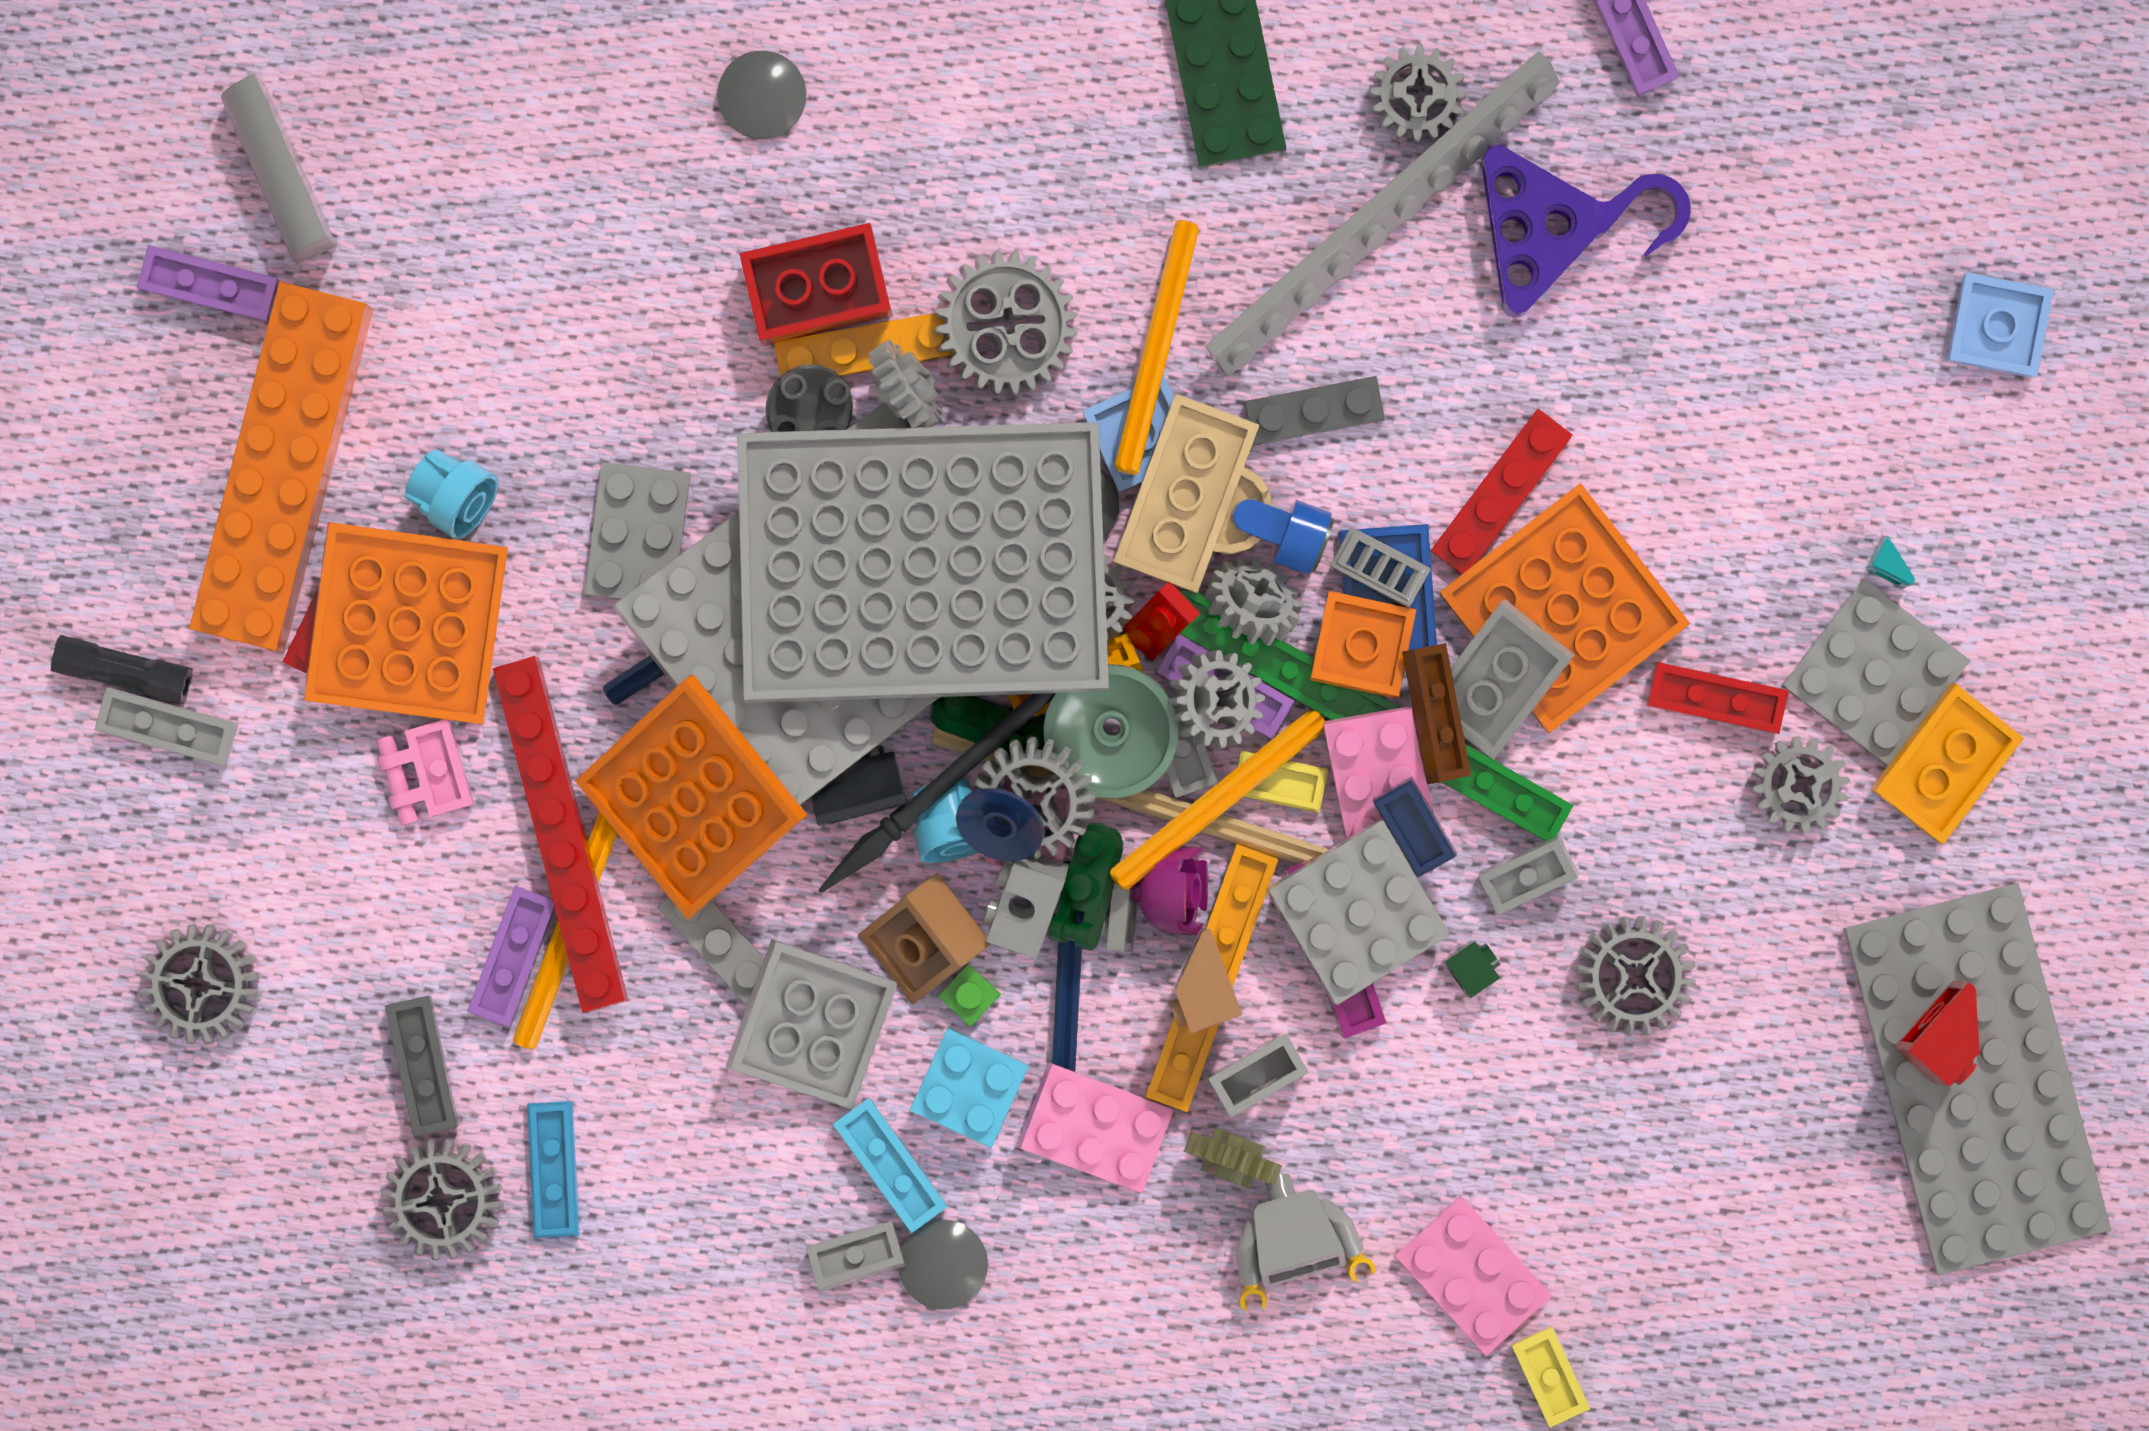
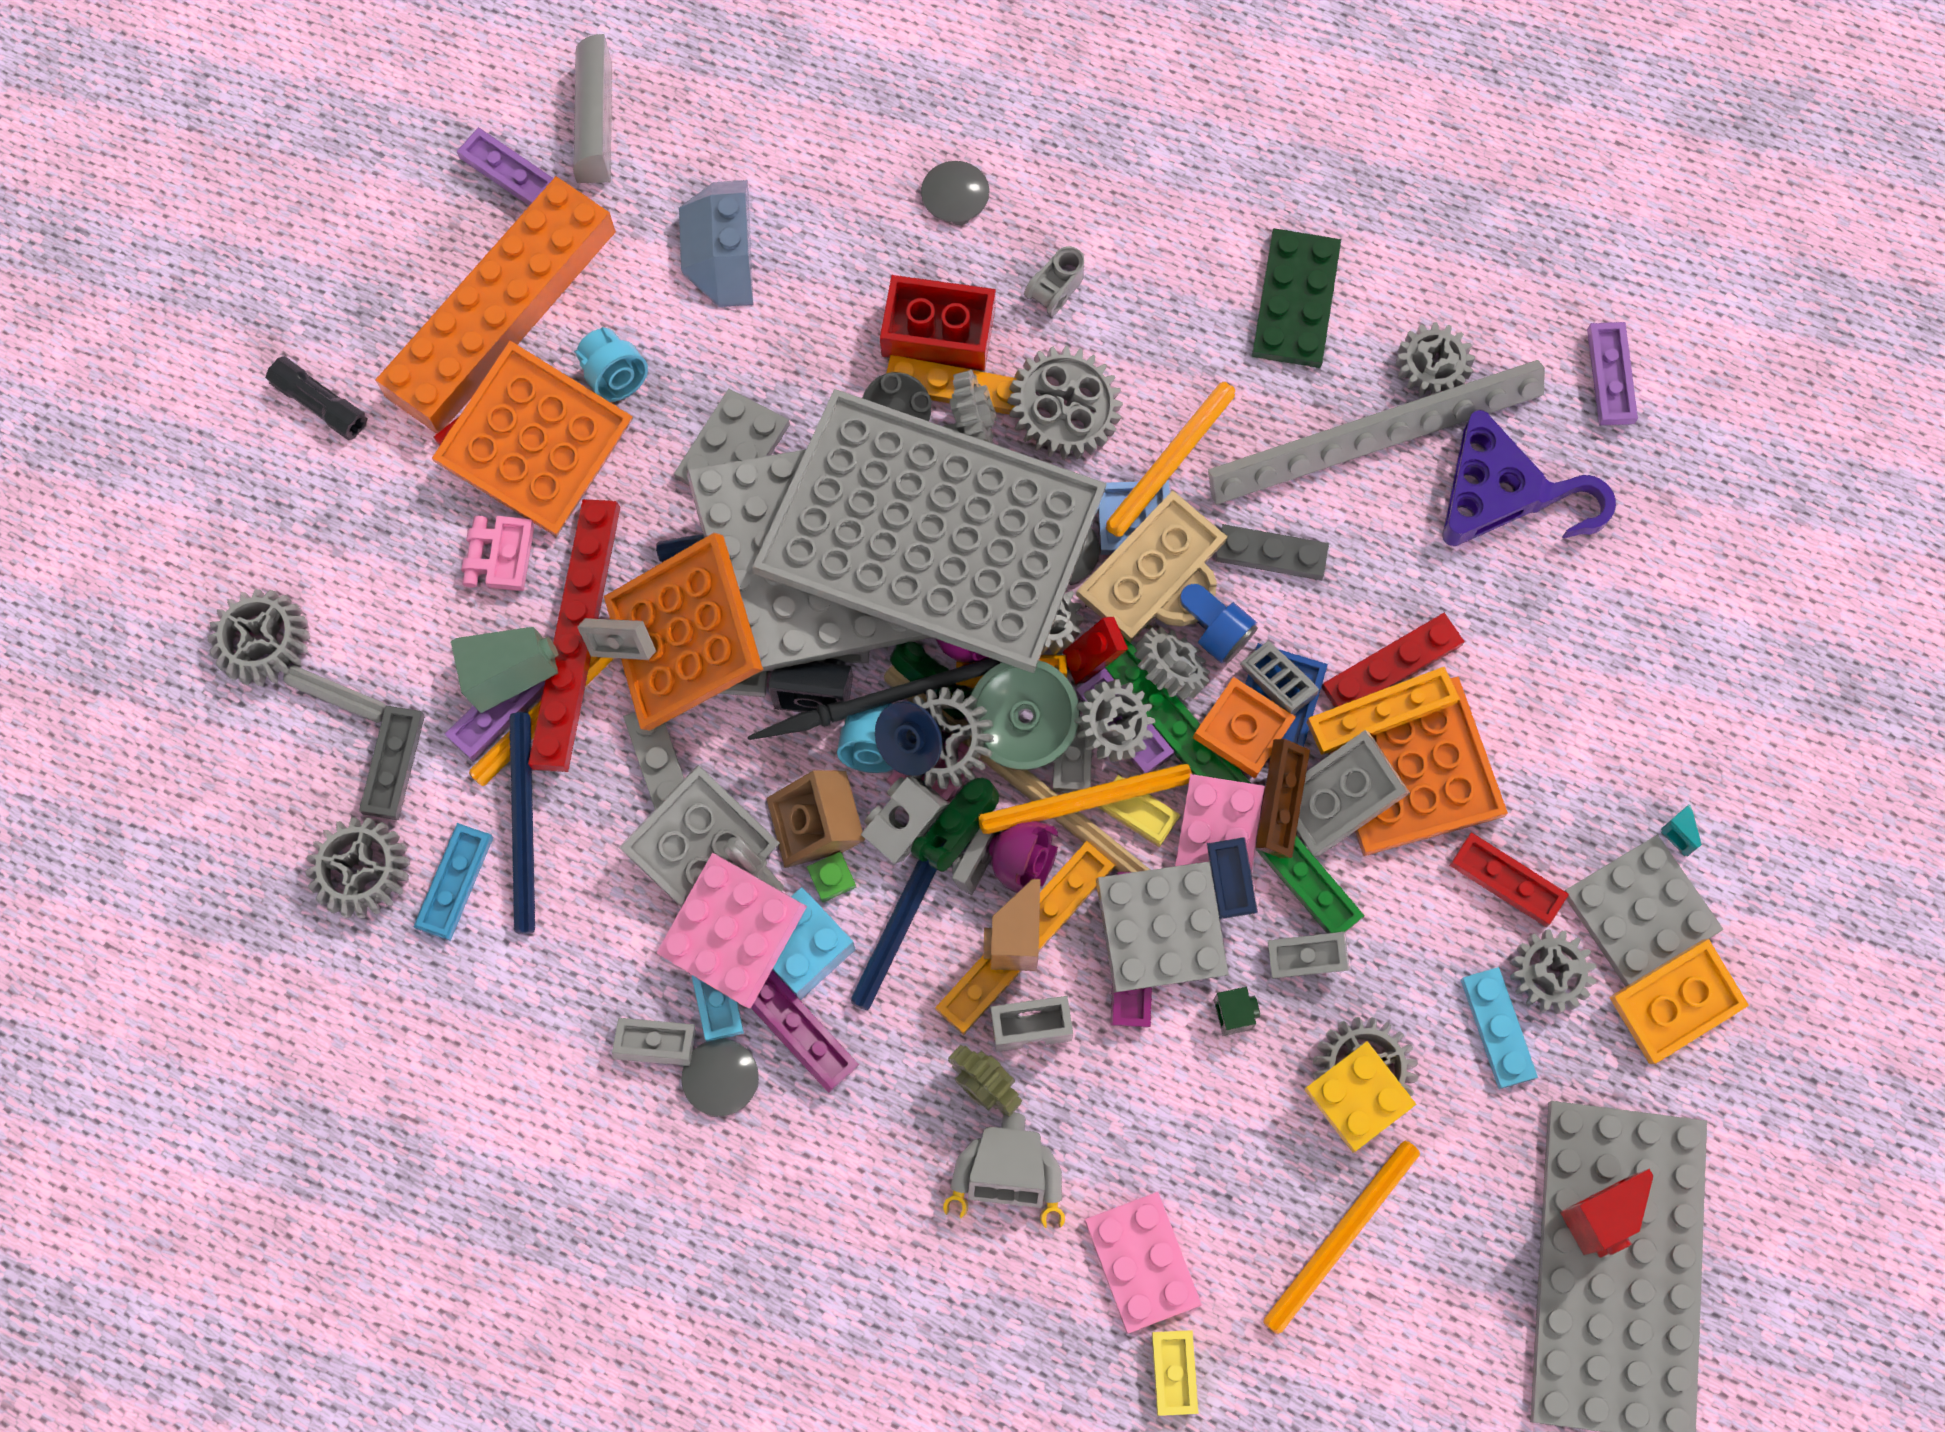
camera: 20 degrees right, 15 degrees down
(166, 726) = (328, 449): light grey plate -> none
(318, 1012) = (335, 693): none -> light grey axle
(499, 911) = (502, 664): none -> sand green slope
(505, 275) = (718, 243): none -> sand blue wedge
(601, 1075) = (522, 823): none -> dark blue axle
(618, 831) = (617, 638): none -> light grey plate
(883, 1026) = (746, 859): none -> light grey axle
(891, 1108) = (731, 930): none -> bright pink plate
(932, 171) = (1052, 284): none -> light grey piece
(997, 1176) = (803, 1033): none -> magenta plate
(1095, 1127) = (885, 1016): bright pink plate -> none
(1510, 563) = (1383, 710): none -> light orange plate
(1640, 1014) = (1360, 1097): none -> yellow plate
(1673, 1163) = (1341, 1237): none -> light orange axle
(1762, 869) = (1499, 1028): none -> medium azure plate
(2000, 325) = (1828, 687): light blue plate -> none

